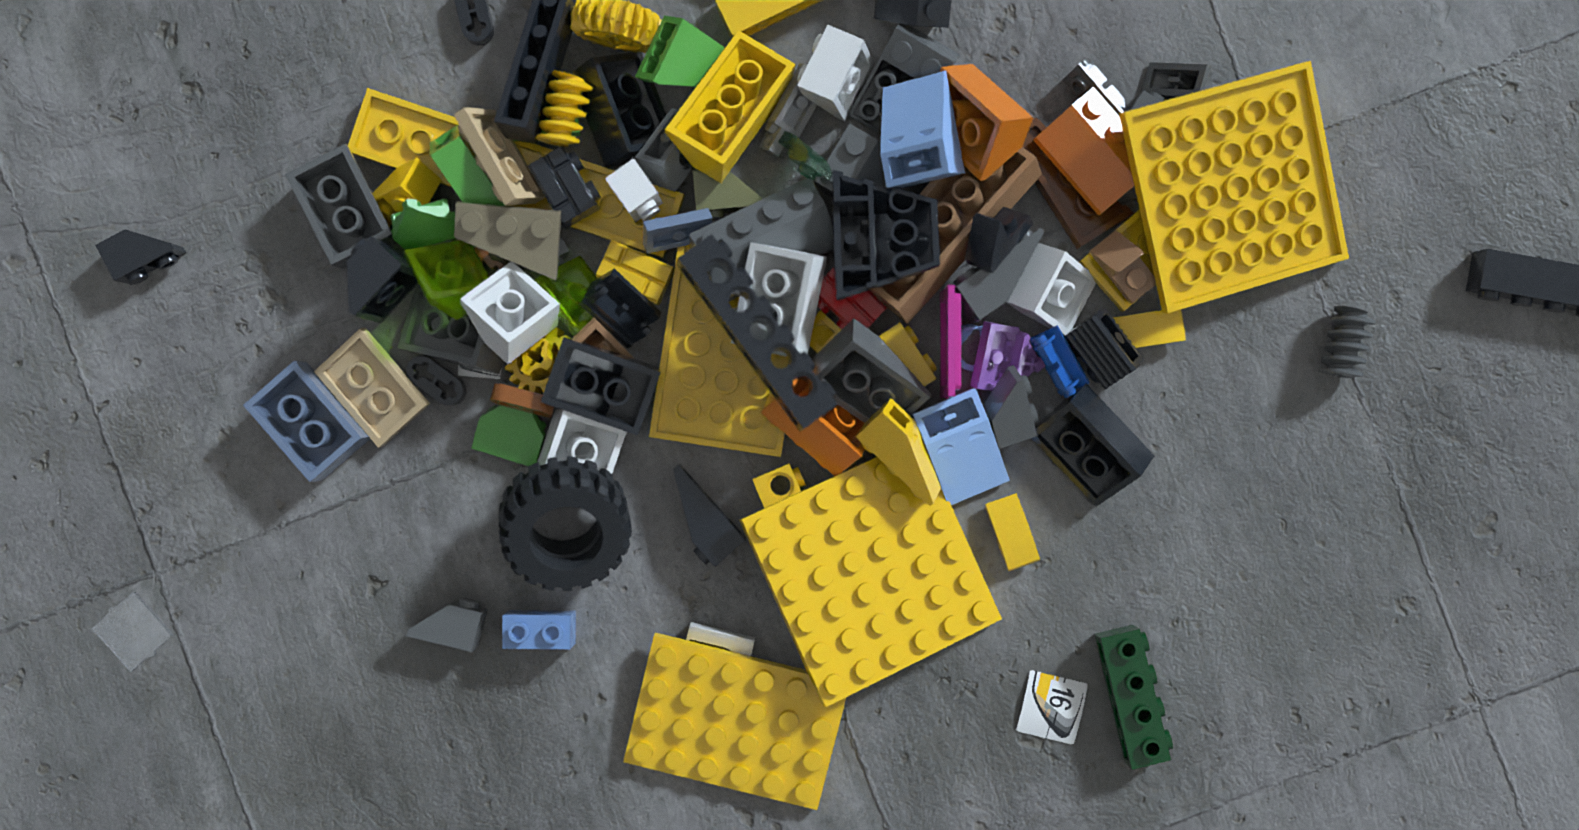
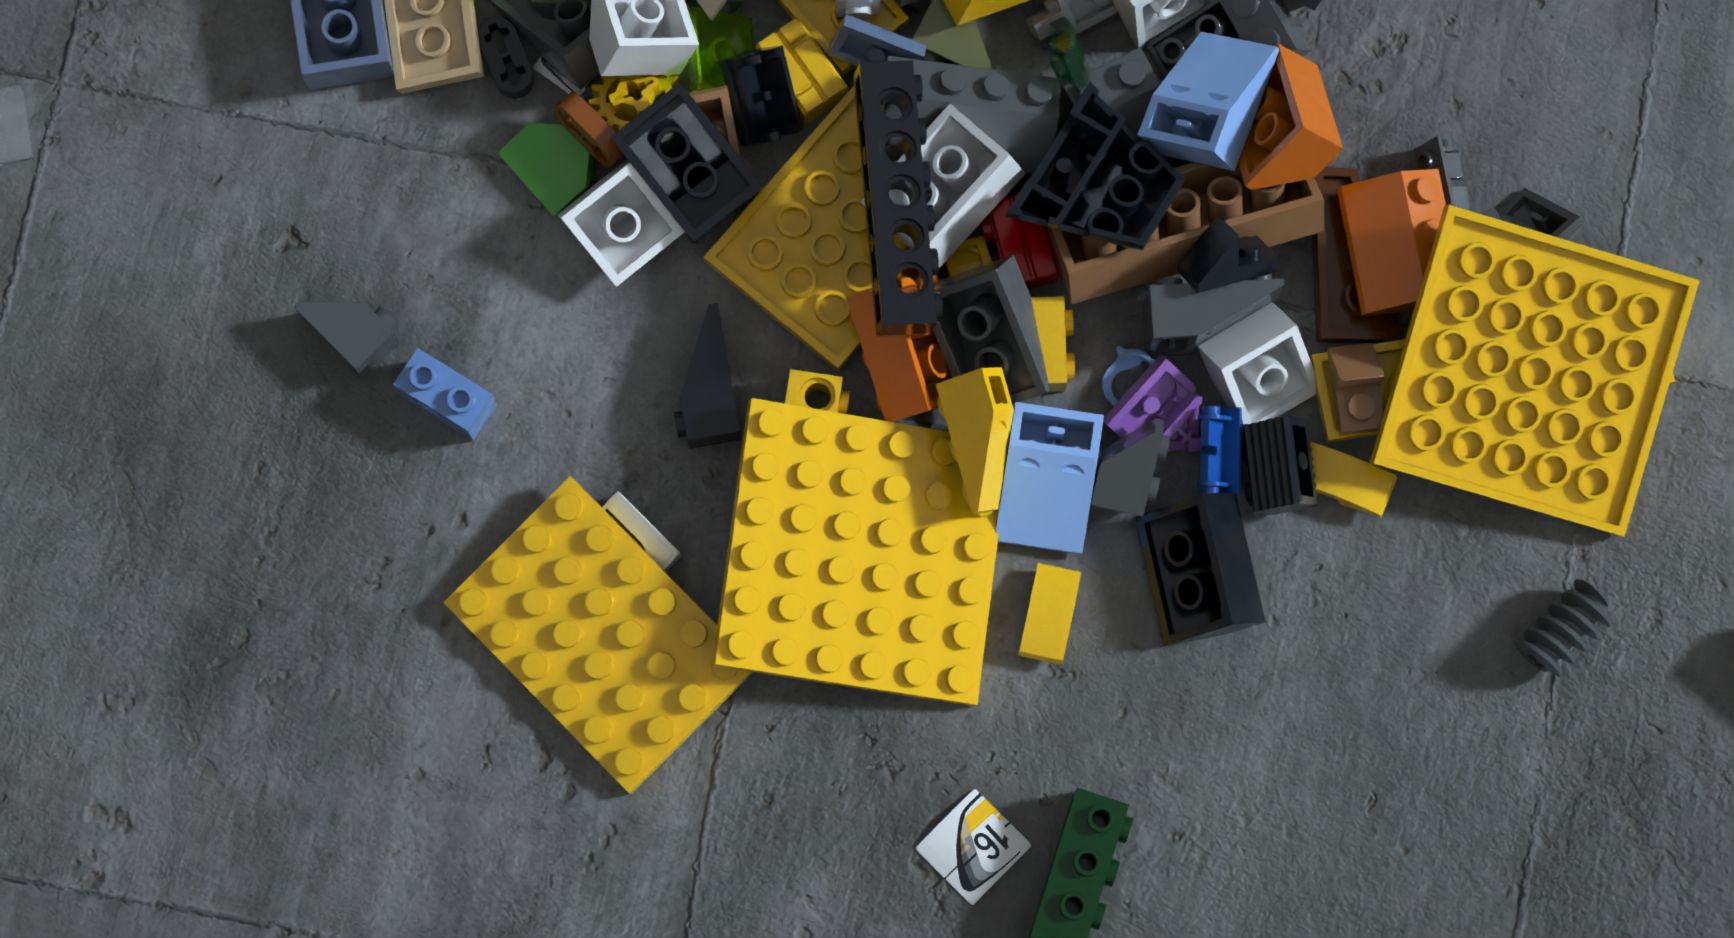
camera: 30 degrees right, 10 degrees down
(566, 561) = (520, 332): black tyre -> none
(950, 342) = (1107, 348): dark pink piece -> none

